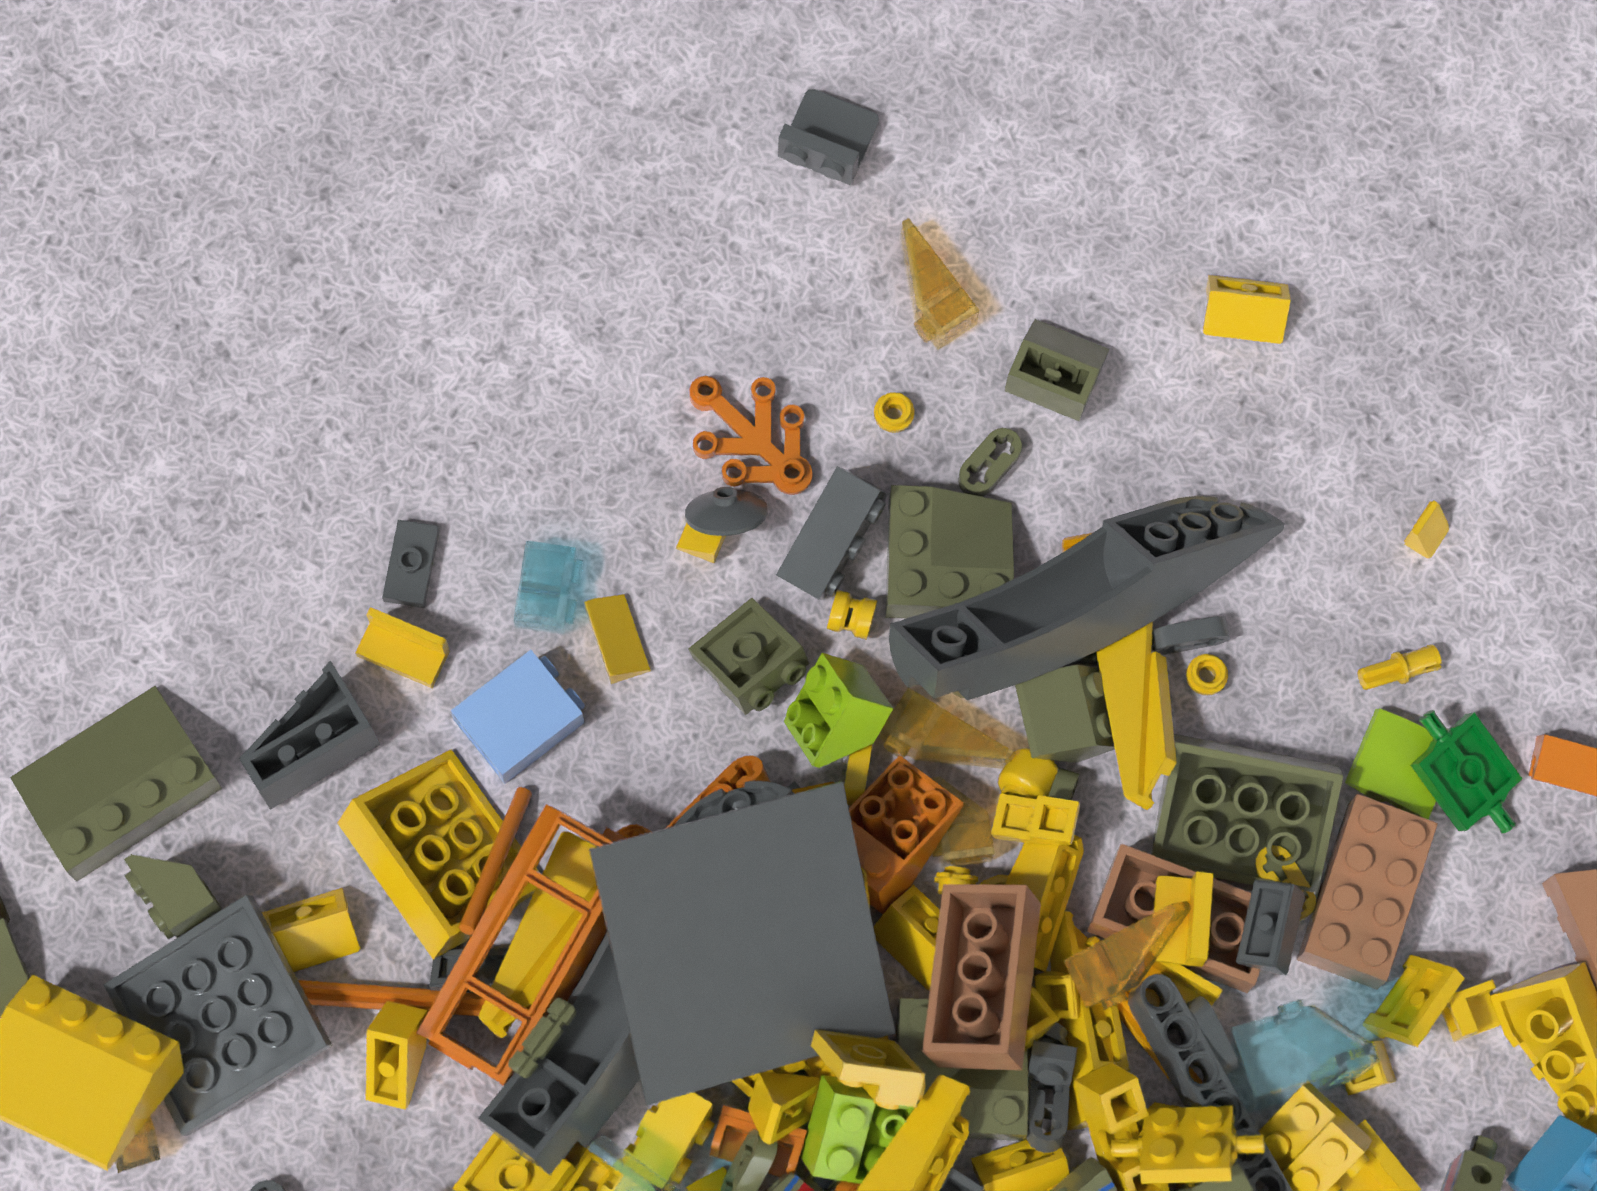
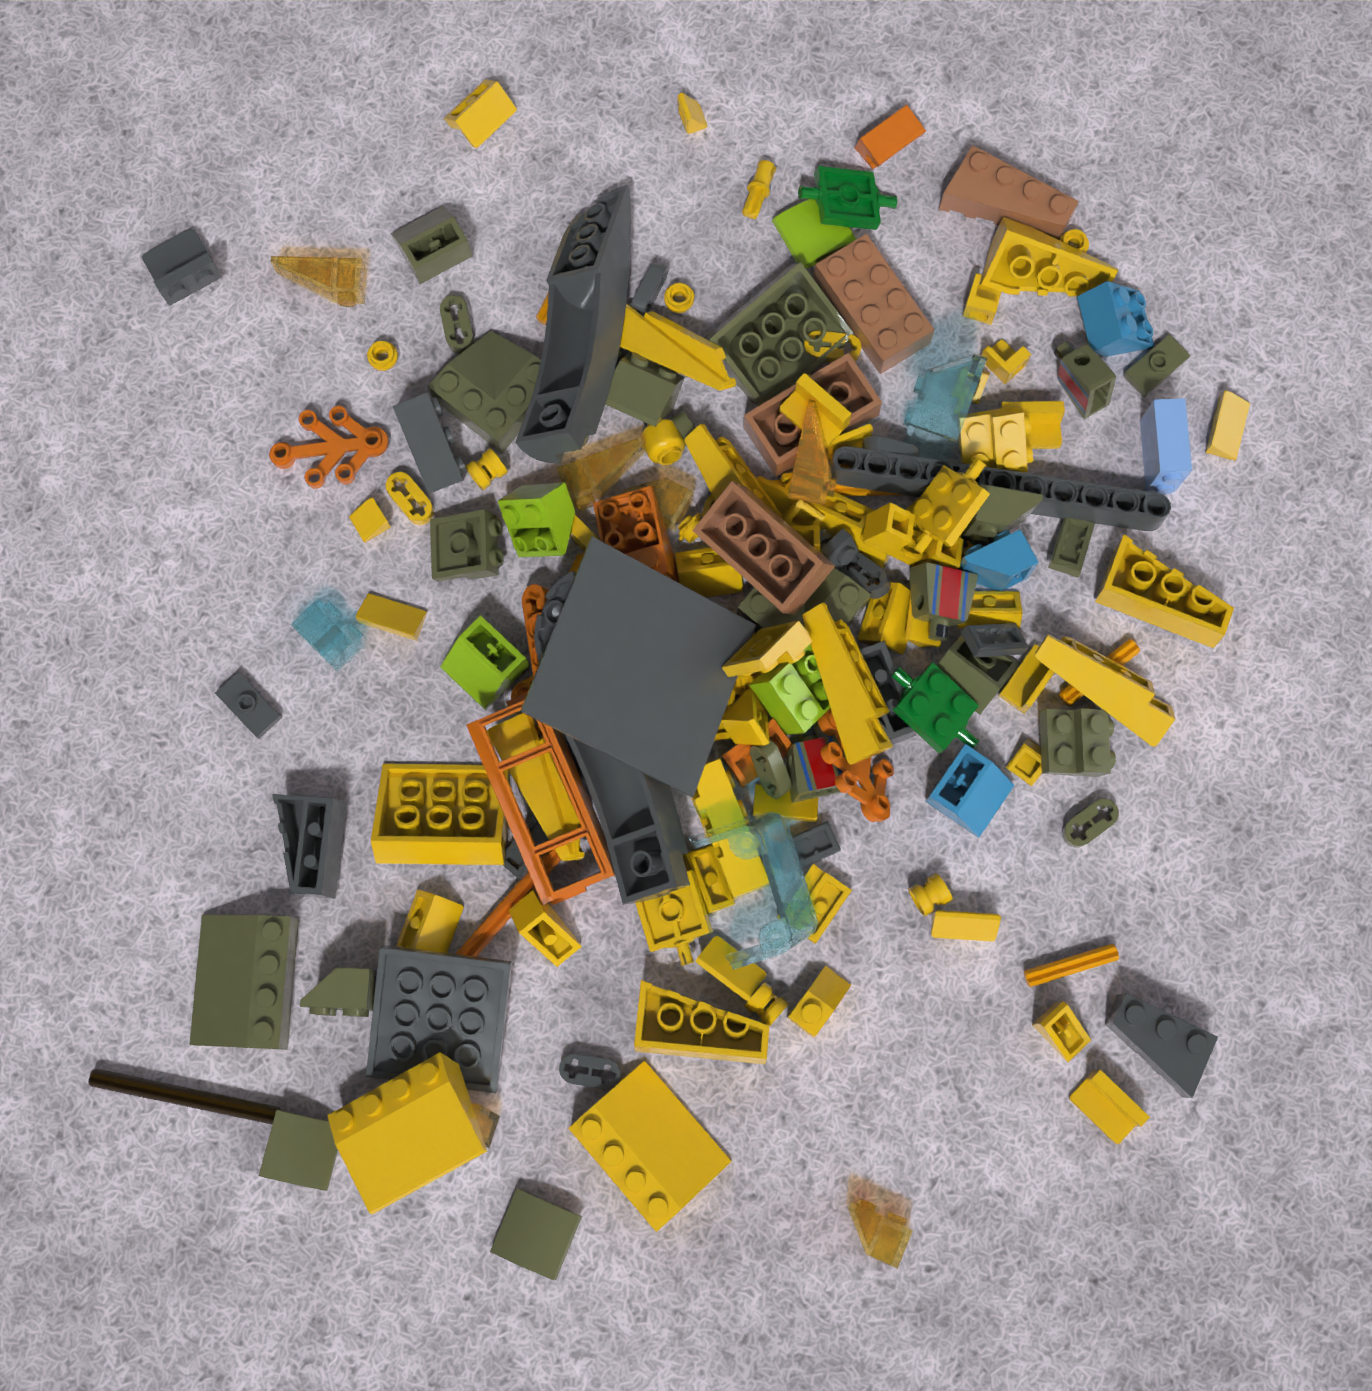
camera: 45 degrees left, 5 degrees up
(403, 648) = (297, 747): yellow panel -> none
(495, 860) = (473, 784): orange bar -> none
(519, 715) = (394, 707): light blue brick -> none
(542, 1038) = (605, 830): olive axle -> none
(636, 772) = (483, 662): none -> lime slope
(726, 512) = (366, 495): dark grey dish -> none
(769, 561) = (404, 503): none -> yellow beam
(1035, 820) = (694, 452): yellow slope -> none
(1271, 926) = (856, 367): dark grey slope -> none
(1414, 1001) = (955, 323): yellow plate -> none
(1422, 1088) = (1005, 361): none -> yellow panel

